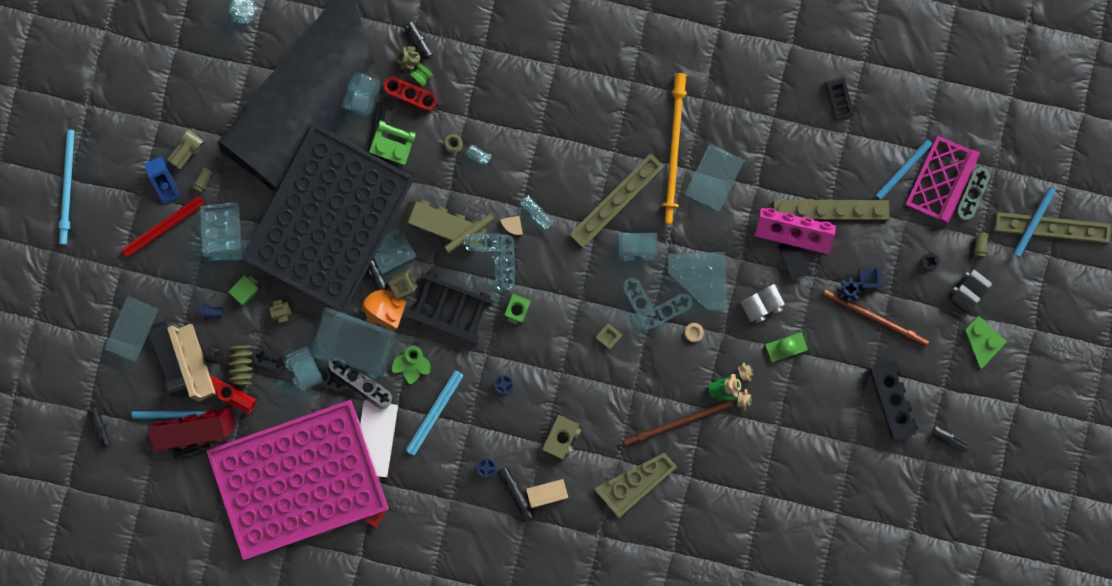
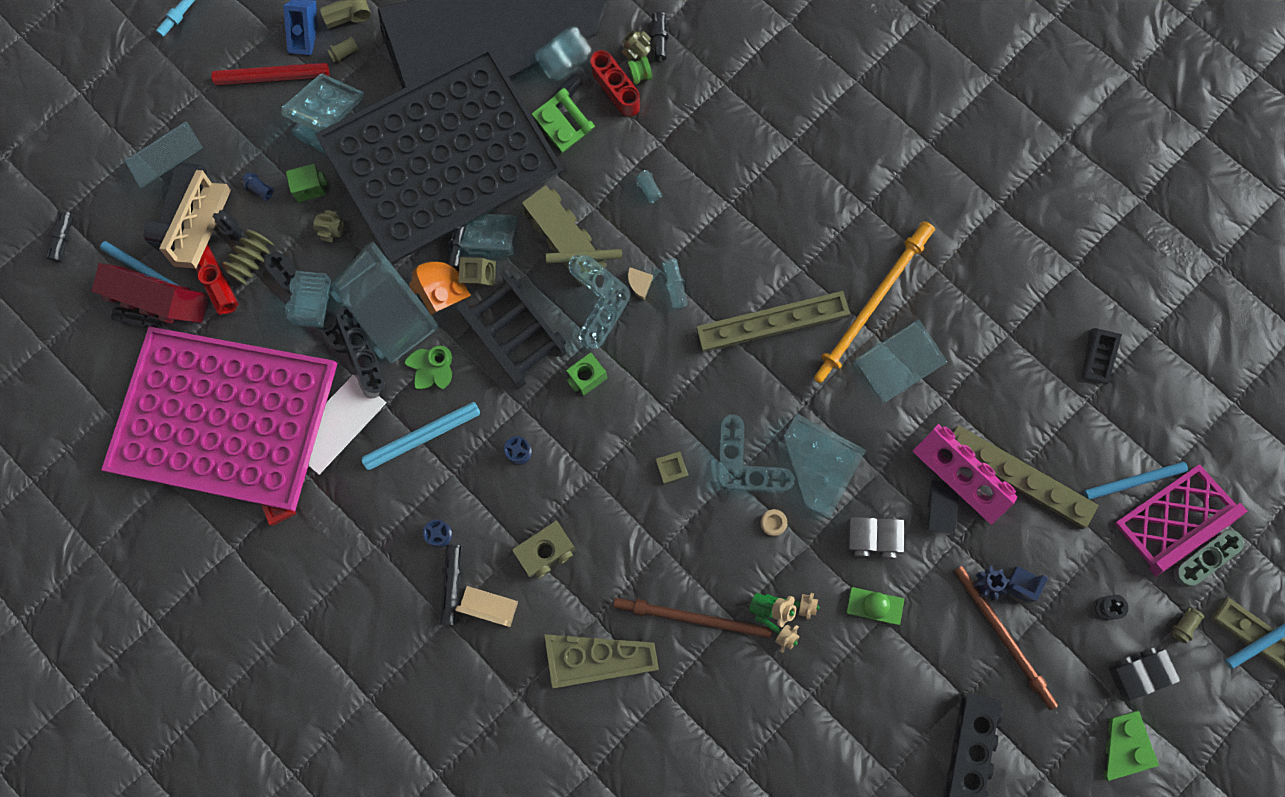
camera: 35 degrees right, 10 degrees down
(448, 139) = (629, 153): olive plate -> none
(638, 245) = (768, 384): clear light blue brick -> none

